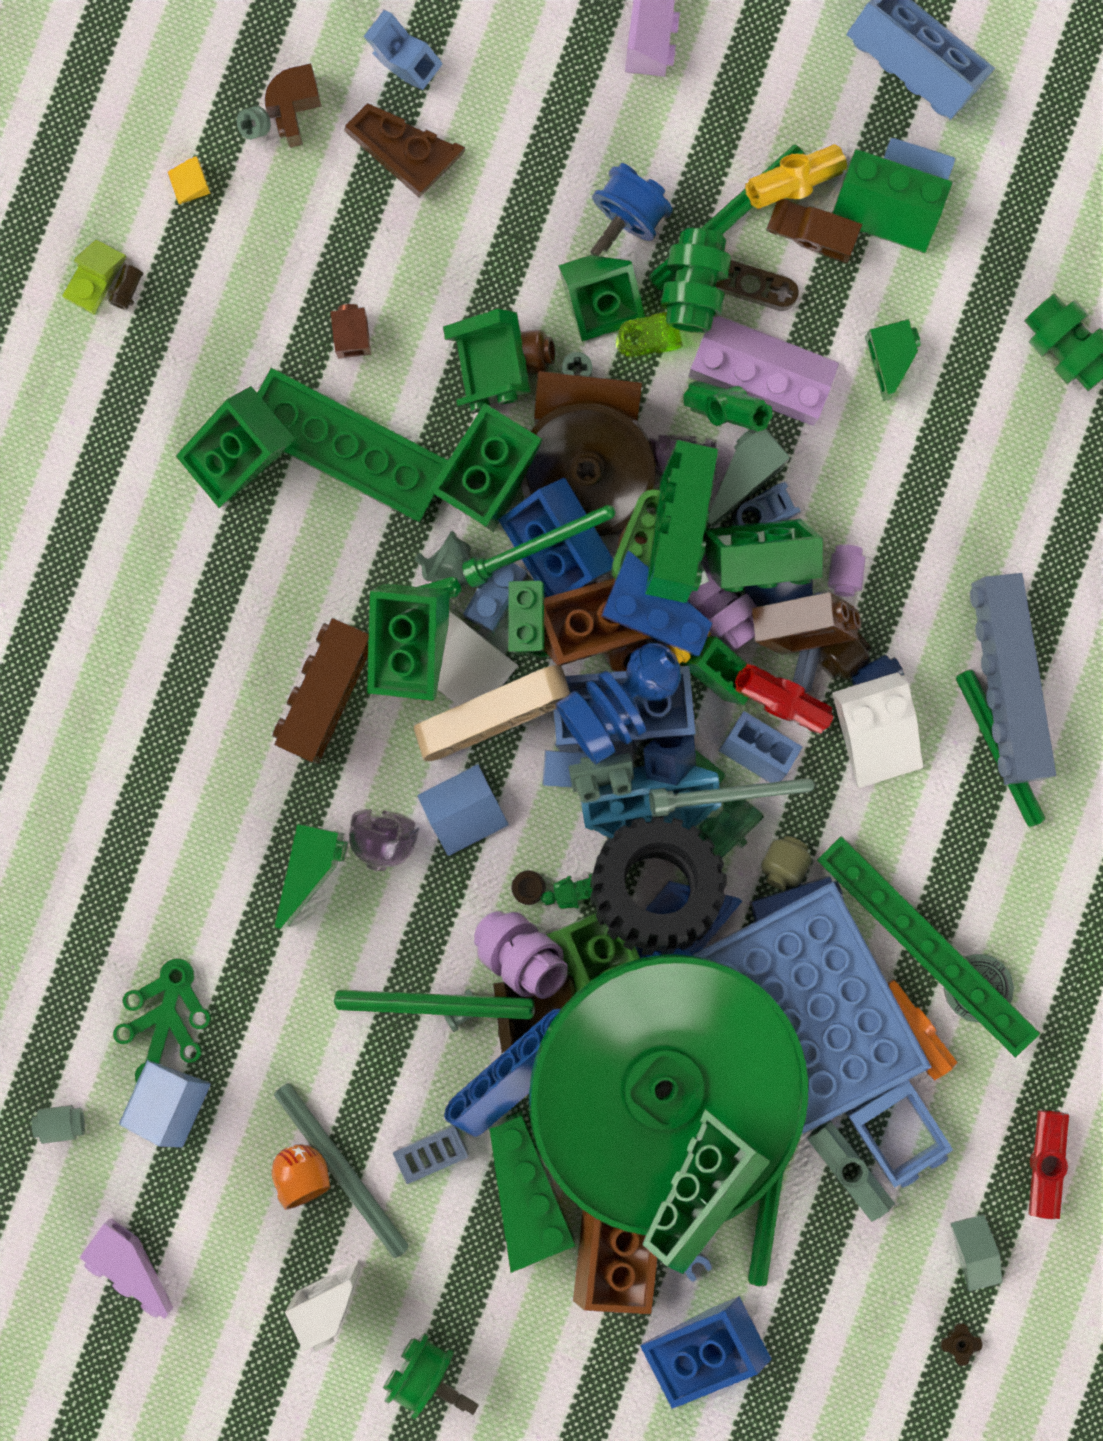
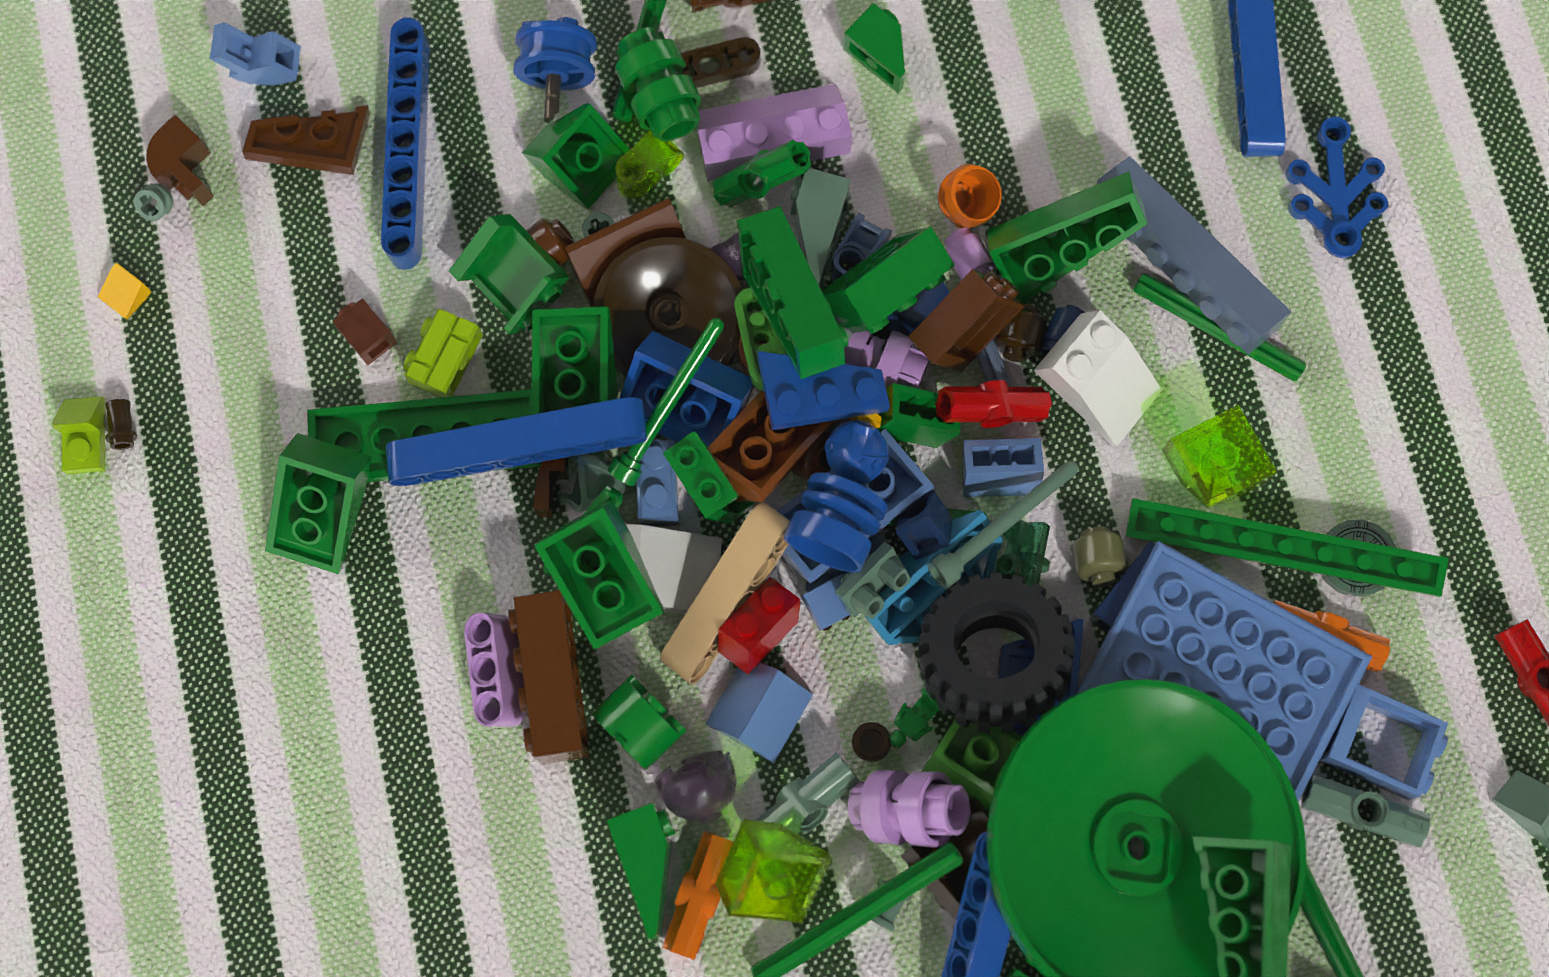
camera: 30 degrees left, 10 degrees down
(275, 668) = (493, 689): none -> lavender beam
(333, 916) = (697, 897): none -> orange piece
(367, 765) = (638, 722): none -> green brick
(391, 936) = (771, 873): none -> clear neon green slope
(398, 388) = (442, 354): none -> lime brick
(408, 499) = (516, 442): none -> blue beam
(429, 530) = (544, 492): none -> reddish brown slope
(447, 900) = (805, 801): none -> sand green piece
(479, 182) = (410, 158): none -> blue beam
(500, 751) = (758, 625): none -> red brick
(877, 524) = (969, 191): none -> orange helmet
(925, 603) = (1065, 234): none -> green wedge
(925, 850) = (1219, 458): none -> clear neon green slope

